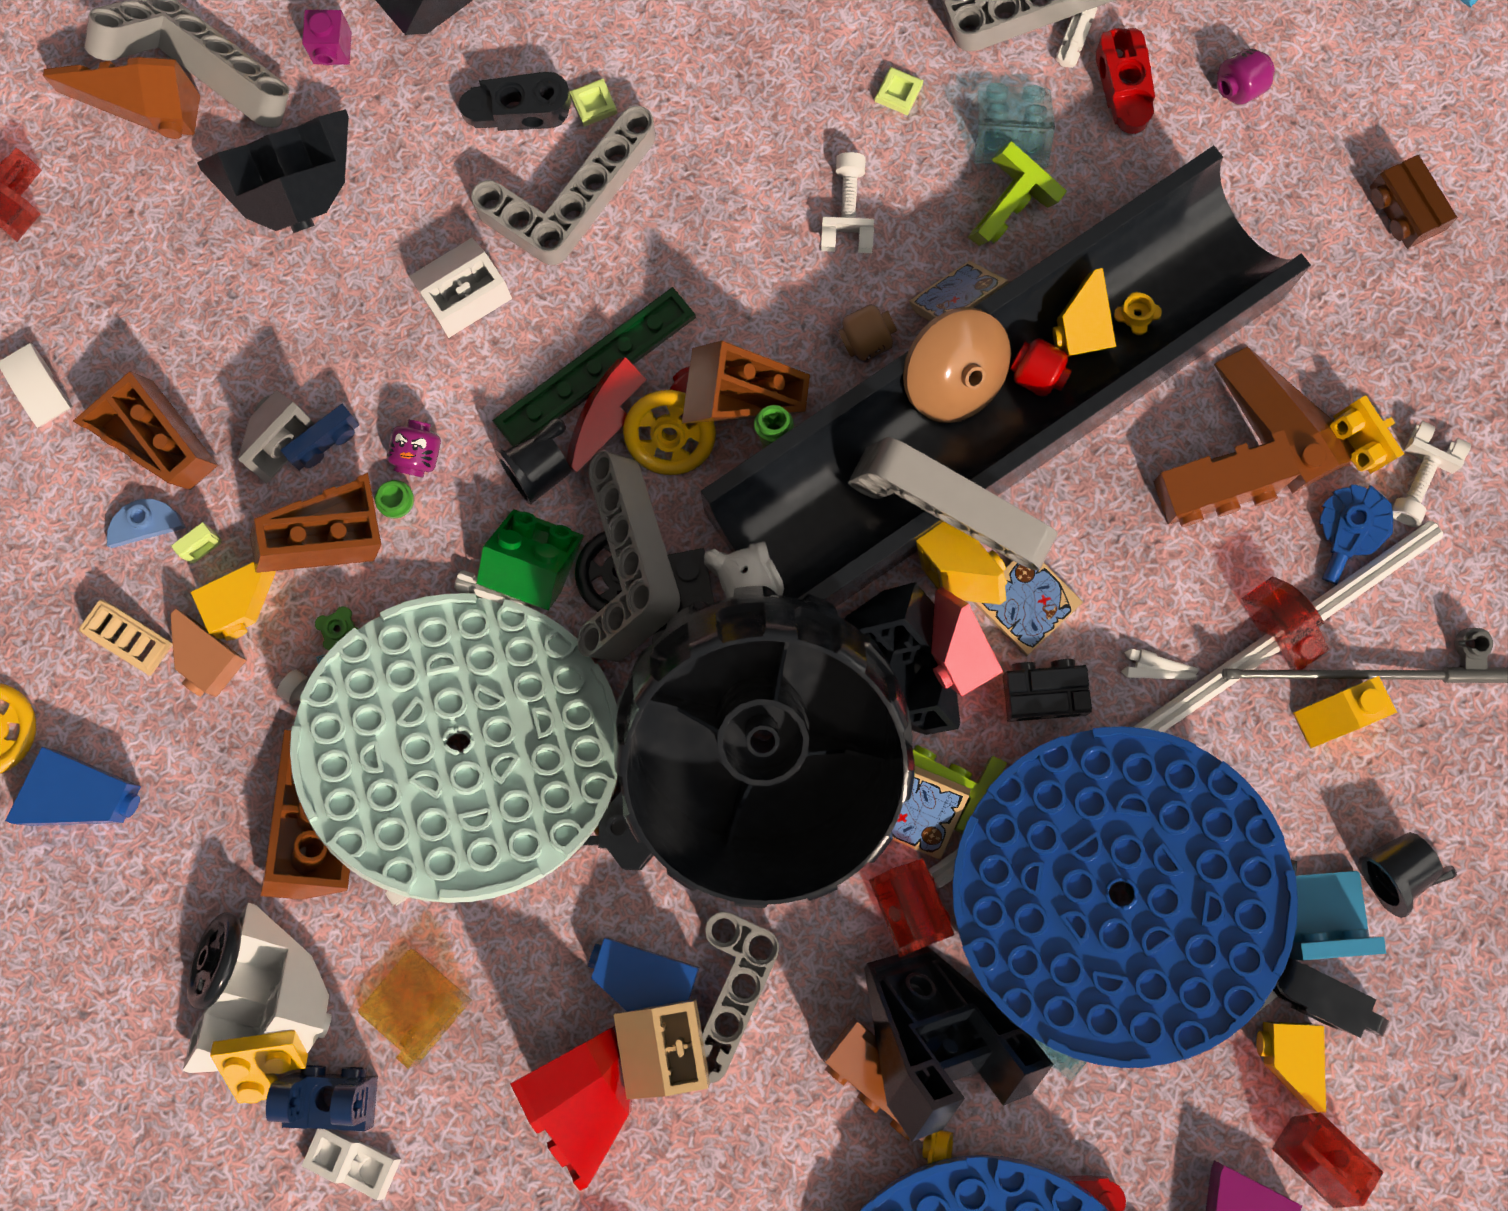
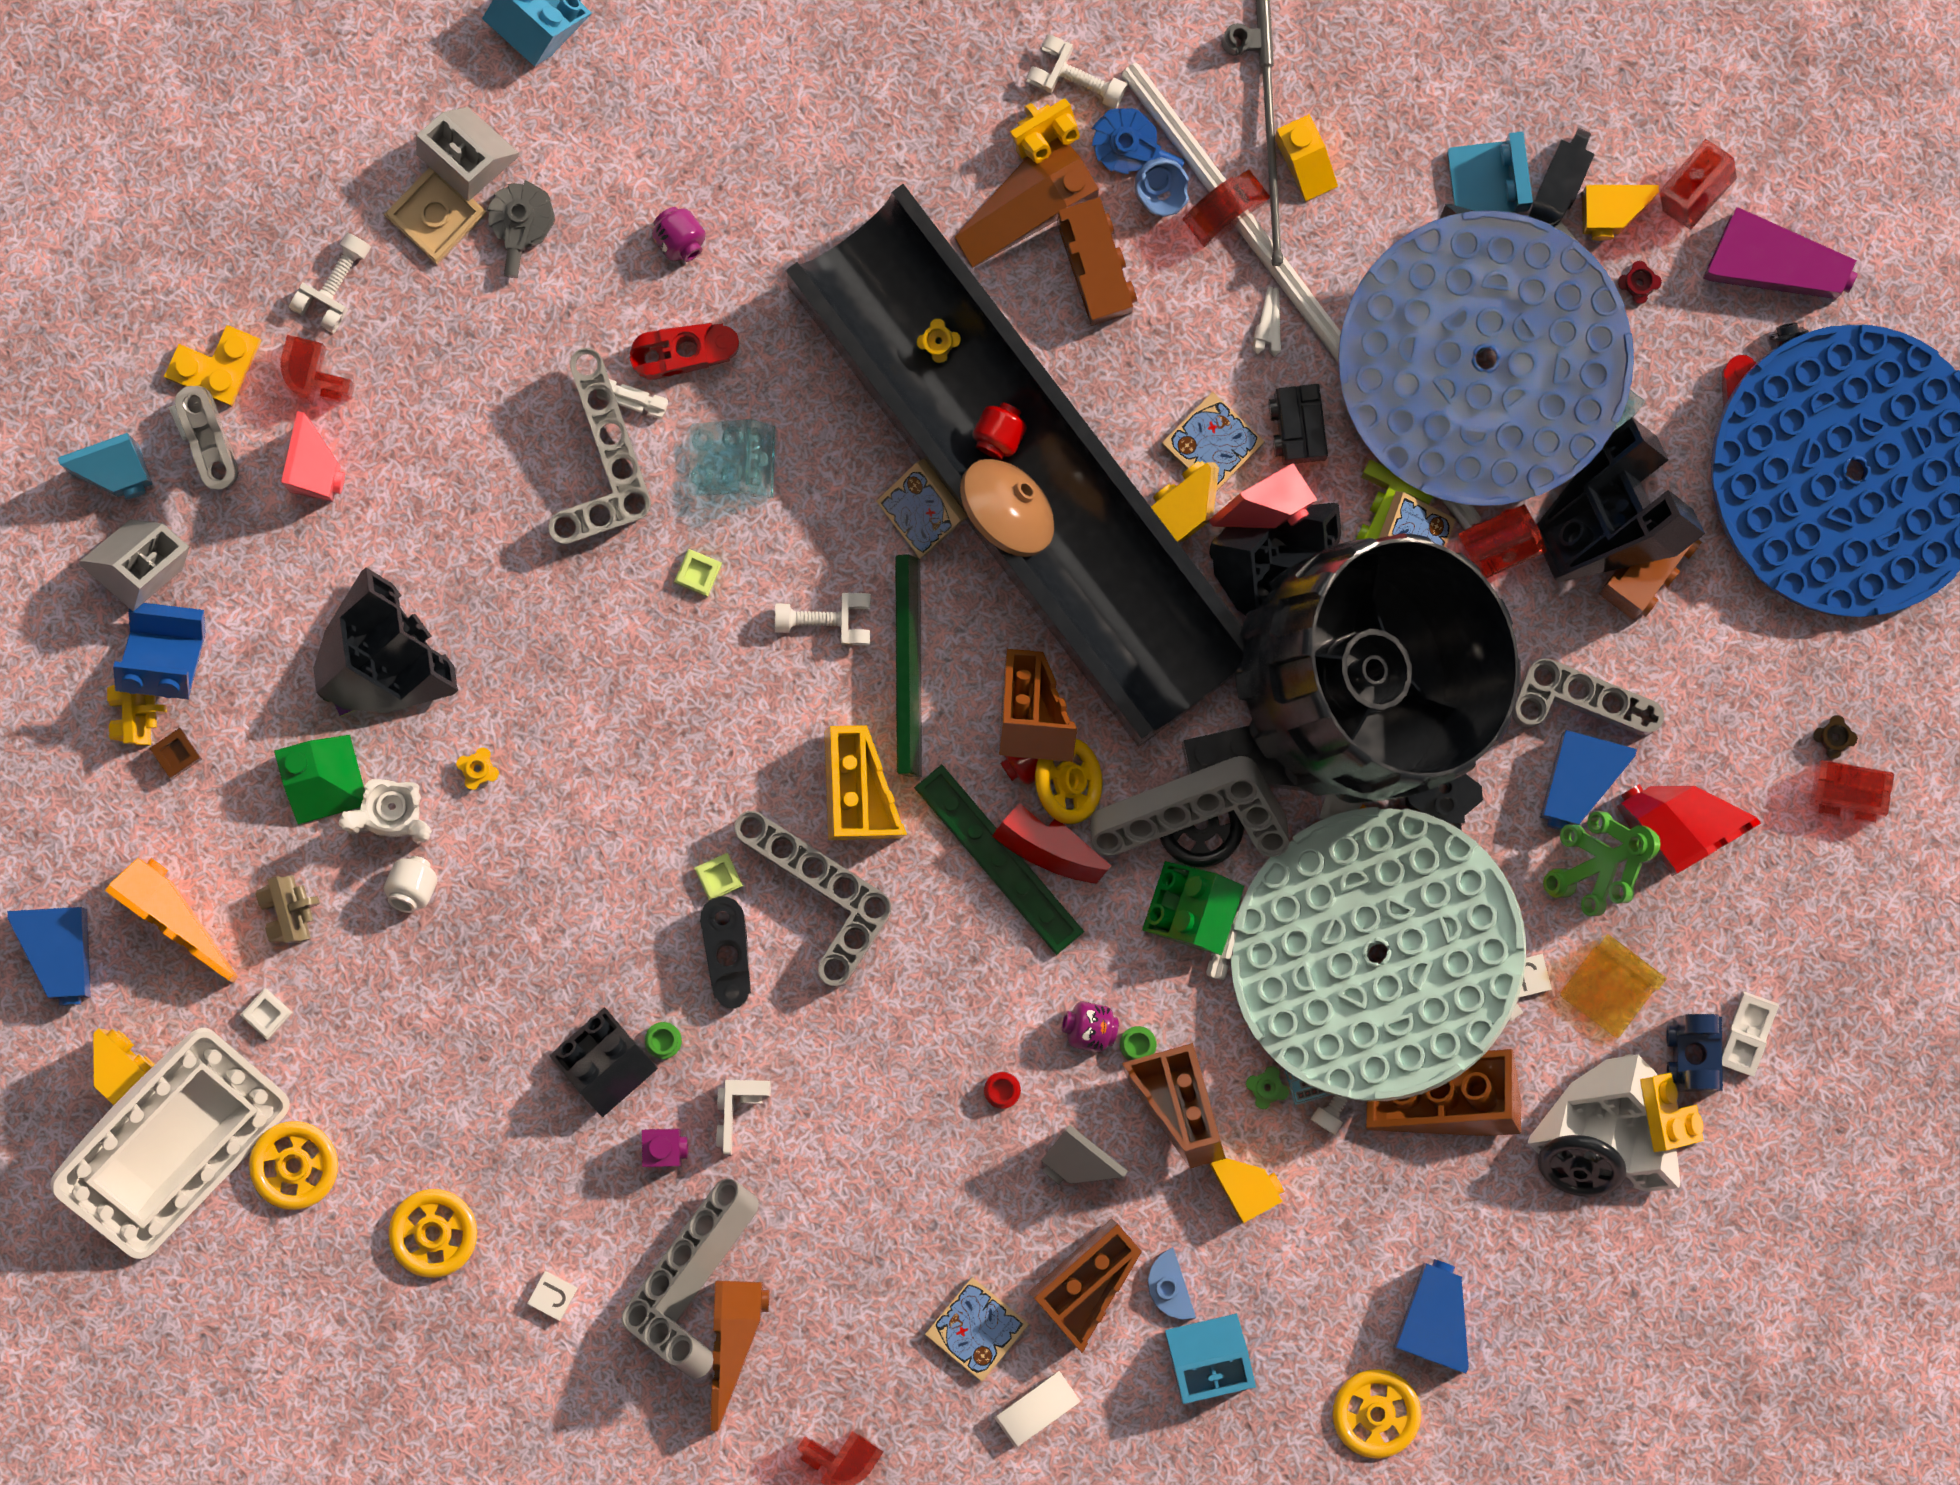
camera: 100 degrees left, 5 degrees up
(56, 554) = (1210, 1358): none -> dark azure slope
(100, 616) = (1269, 1315): tan slope -> none
(122, 330) = (977, 1329): none -> tile
(196, 543) = (1192, 1228): yellowish green tile -> none
(201, 657) = (1301, 1211): nougat slope -> none
(285, 174) = (812, 1177): black brick -> none
(332, 429) = (1094, 1128): dark blue plate -> none
(359, 363) = (1002, 1090): none -> red plate
(370, 100) = (750, 1093): none -> white bracket
(433, 918) = (1535, 976): none -> white tile
(435, 47) = (663, 1040): none -> bright green plate
(461, 287) = (921, 995): white slope -> none
(536, 462) = (1101, 906): black hat -> none
(550, 1040) = (1605, 862): none -> bright green plant
(662, 1050) = (1639, 754): tan slope -> none
(671, 225) = (856, 788): none -> yellow wedge
(731, 566) = (1207, 711): white hair -> none
(772, 424) = (1065, 671): bright green cone -> none
(797, 282) = (908, 665): none -> dark green tile
(867, 332) = (957, 596): medium nougat head -> none
(900, 469) = (1144, 512): light grey beam -> none
(938, 1146) = (1706, 515): yellow plate -> none
(1027, 178) = (817, 460): lime bracket -> none
(1086, 319) = (953, 390): yellow slope -> none
(1220, 1085) = (1650, 282): none -> dark red plate
(1316, 551) = (1171, 177): none -> medium blue hair
(1403, 872) = (1447, 110): black hat -> none
(1412, 202) = (807, 79): reddish brown brick -> none

